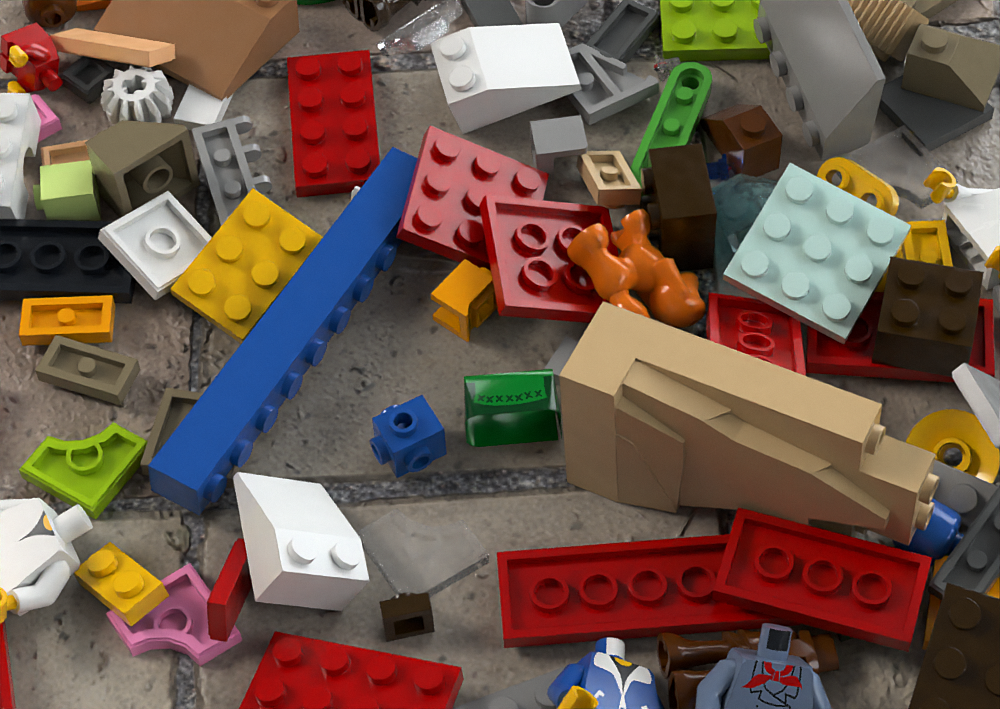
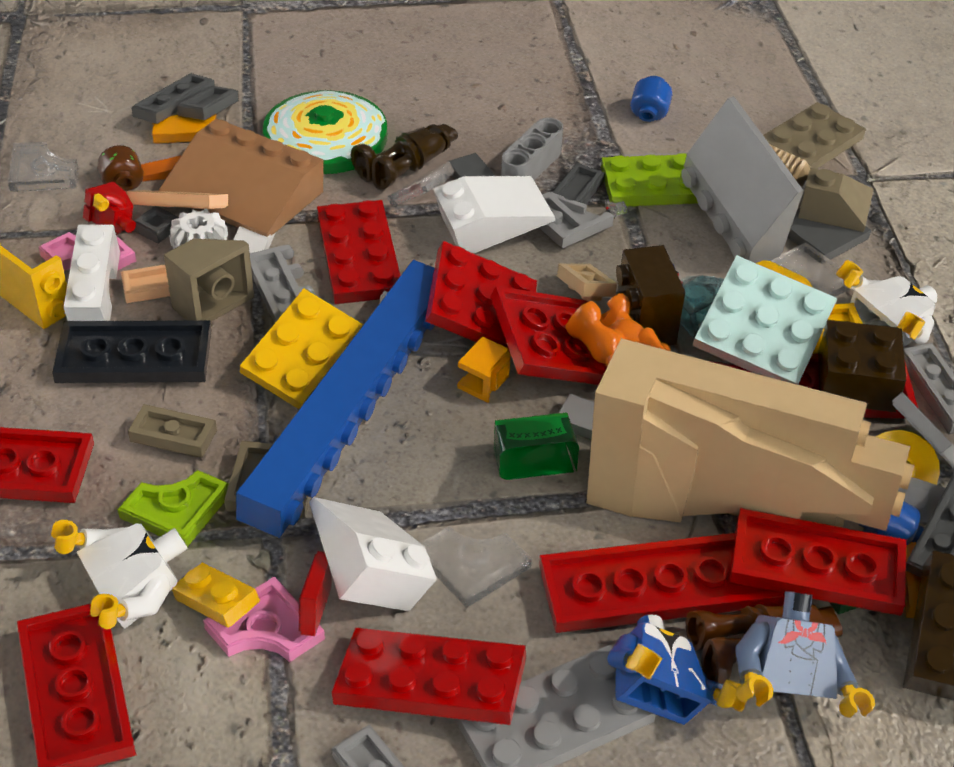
camera: 10 degrees left, 10 degrees down
(68, 192) = (146, 299): yellowish green brick -> none
(76, 318) = (161, 391): light orange plate -> none
(156, 242) = (223, 334): white tile -> none
(407, 615) = (470, 609): dark brown plate -> none
(408, 437) = (453, 469): blue brick -> none
(556, 139) = (540, 254): light grey panel -> none
(676, 112) = (631, 232): bright green plate -> none
(746, 138) = (691, 251): reddish brown slope -> none

